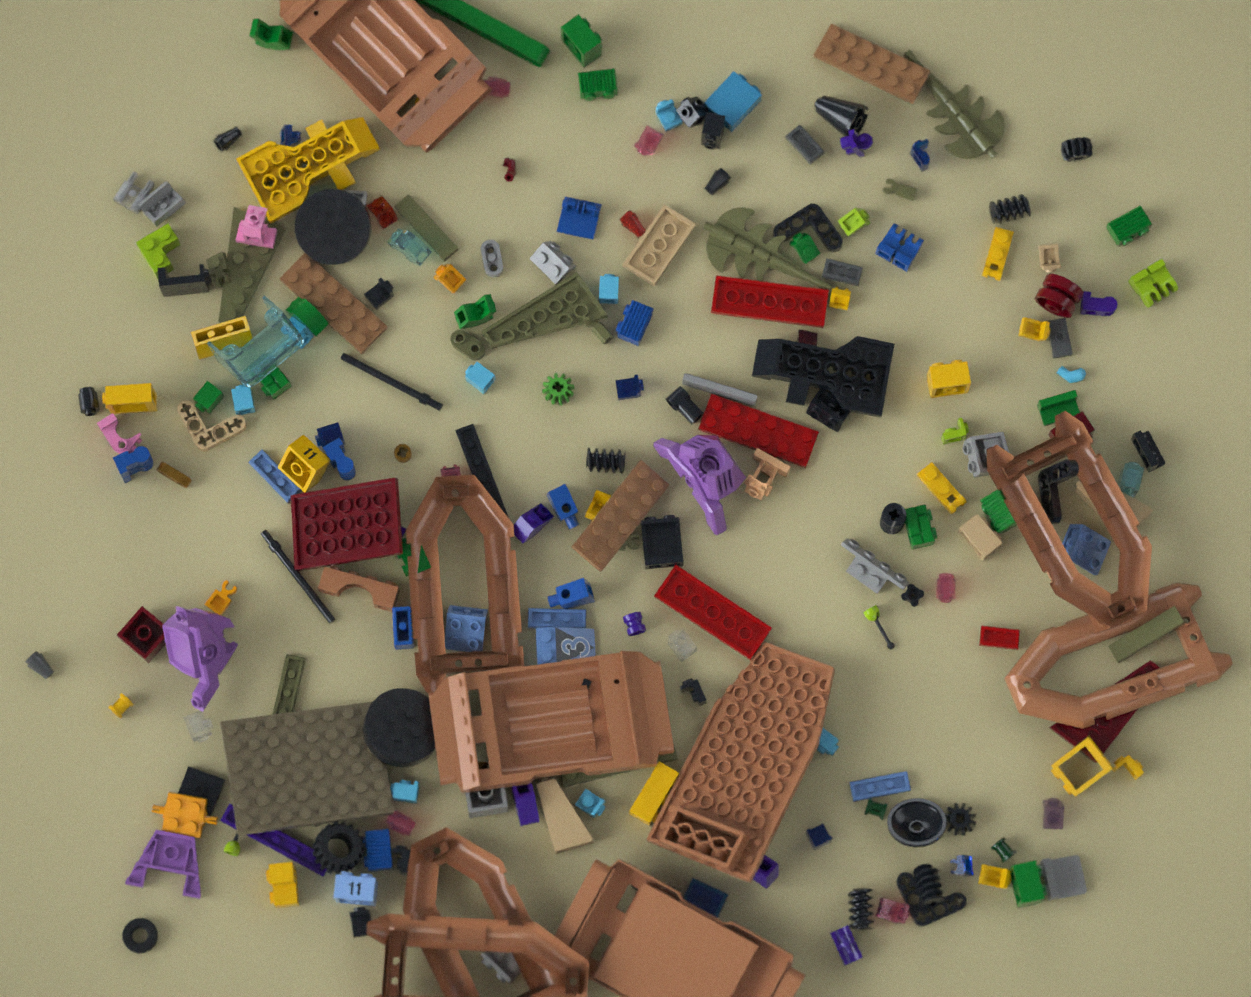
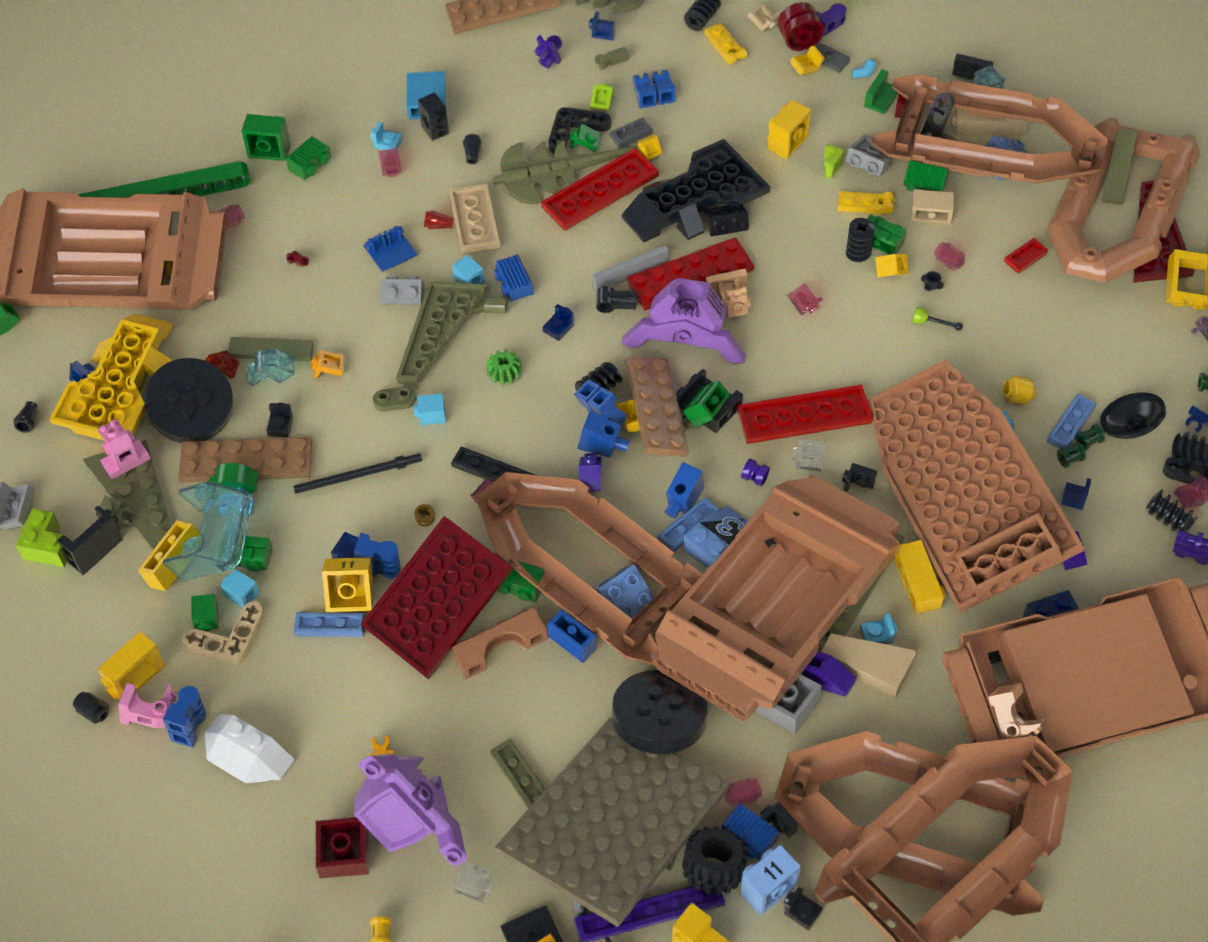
camera: 45 degrees left, 20 degrees down
(148, 516) = (245, 751): none -> white wedge
(174, 475) = (234, 698): pearl gold beam -> none
(275, 547) = (389, 677): black bar -> none
(405, 791) = (720, 761): medium azure brick -> none
(475, 313) = (379, 369): green brick -> none
(491, 259) = (350, 327): light grey plate -> none
(503, 964) = (959, 823): light grey bracket -> none
(581, 482) = (600, 401): none -> blue legs
(590, 933) = (1004, 703): none -> light nougat tile
(651, 546) = (706, 403): none -> green brick
(692, 111) = (409, 121): black brick -> none
(804, 144) = (510, 82): dark grey plate -> none
(808, 527) = (804, 299): none -> clear pink bracket
(842, 114) = (515, 43): black cone -> none
(844, 803) = (1071, 454): none -> dark green bush
(869, 732) = (1019, 390): none -> yellow head
(870, 570) = (884, 291): light grey bracket -> none
(898, 557) = (892, 265): none -> yellow panel
(966, 821) = (1157, 385): black gear -> none

